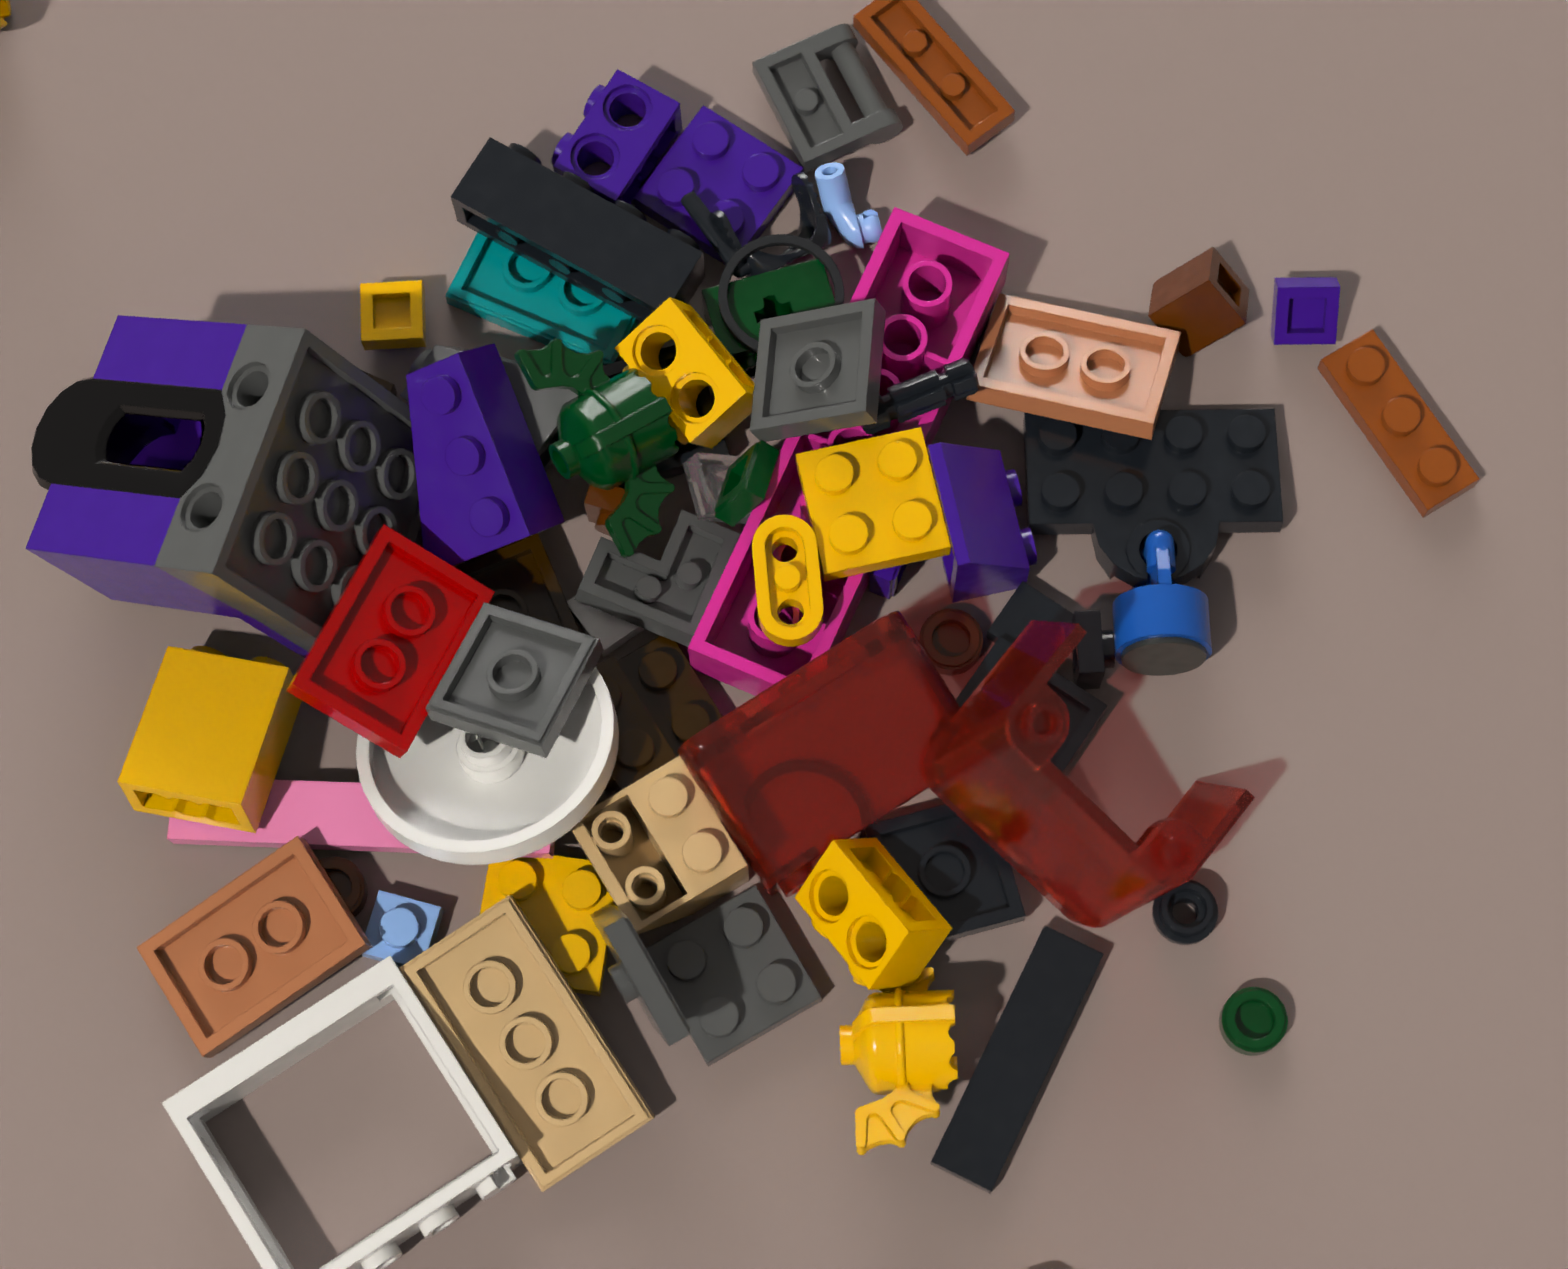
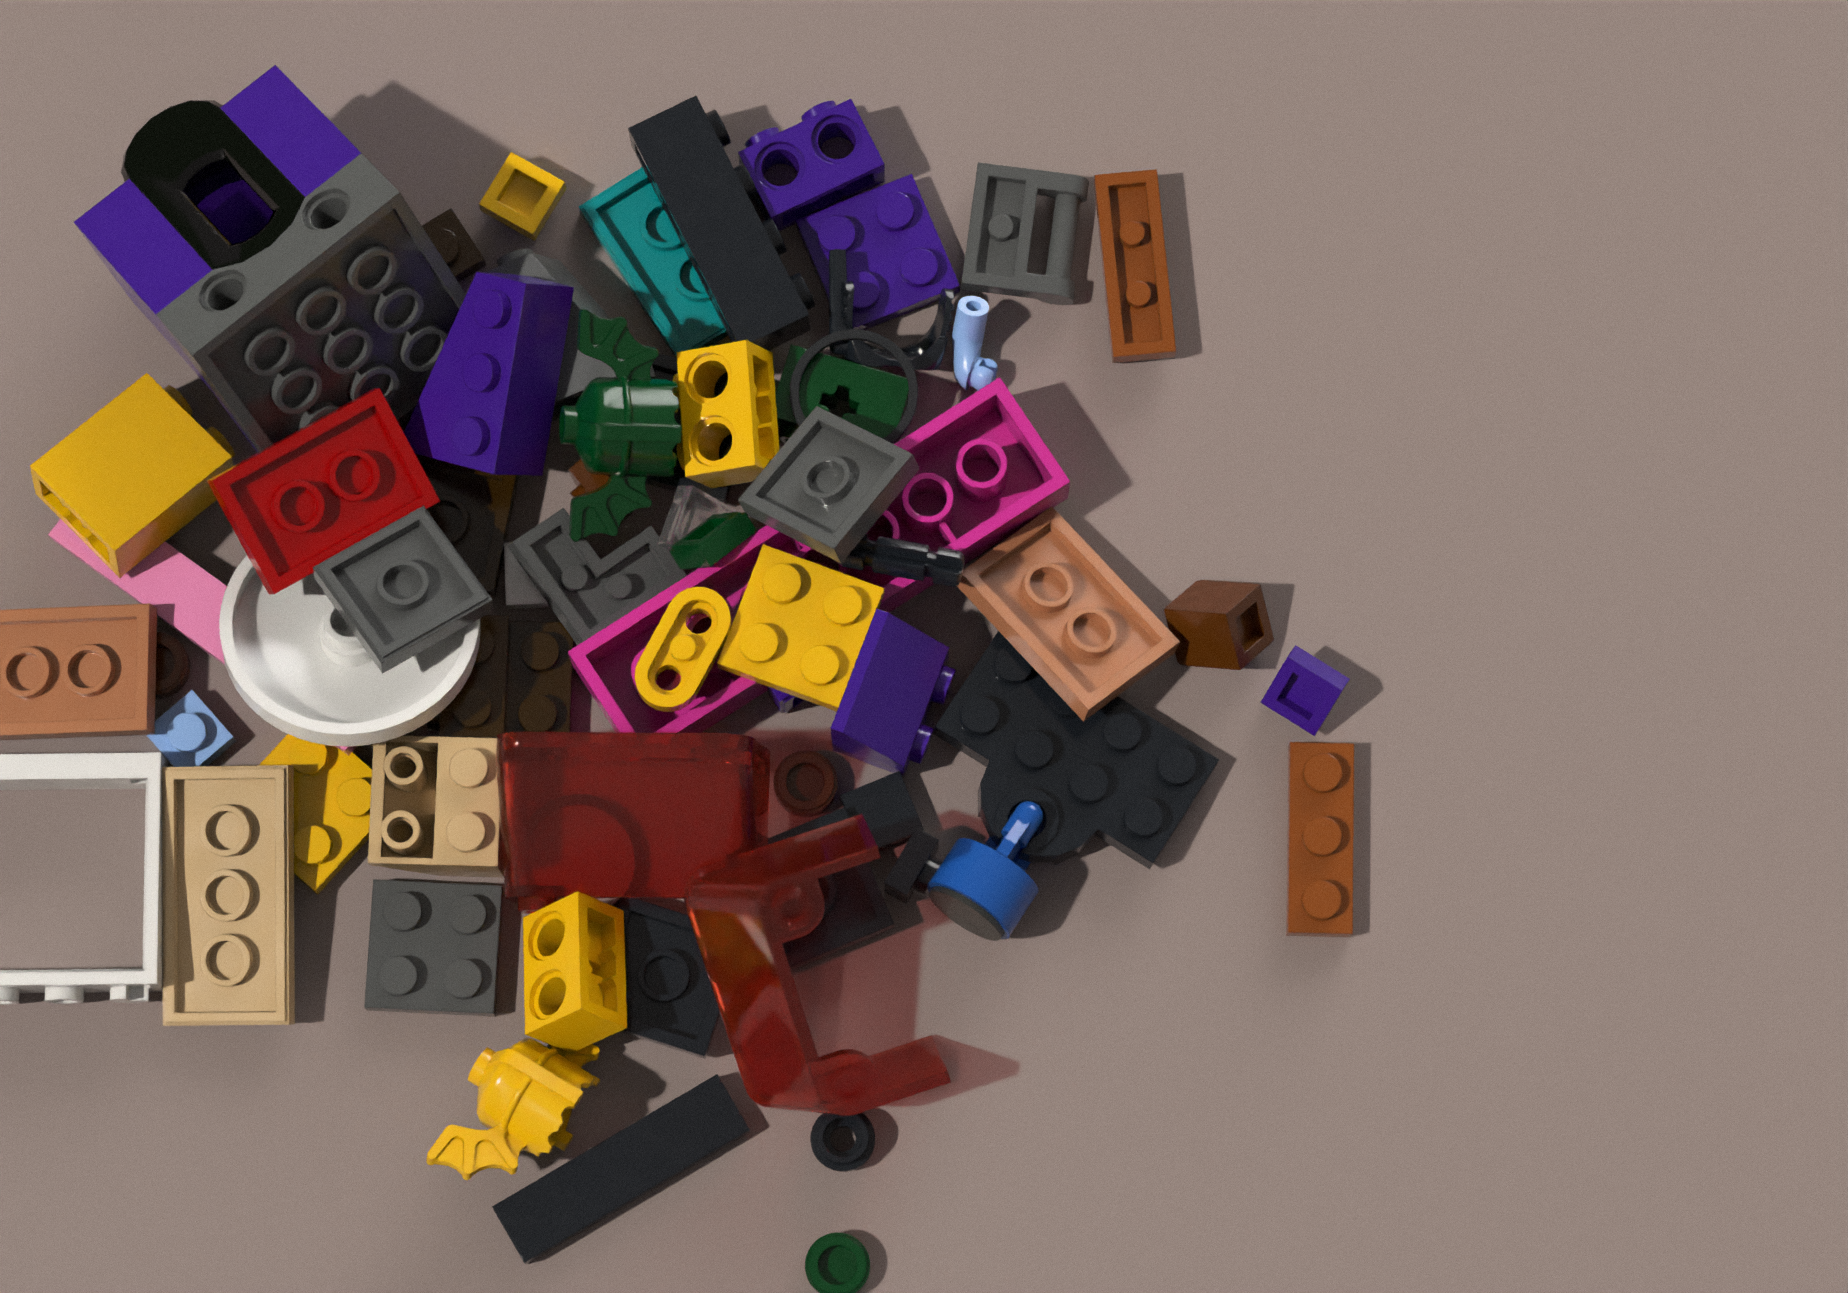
camera: 30 degrees right, 5 degrees up
(638, 976) = (348, 900): dark grey plate -> none

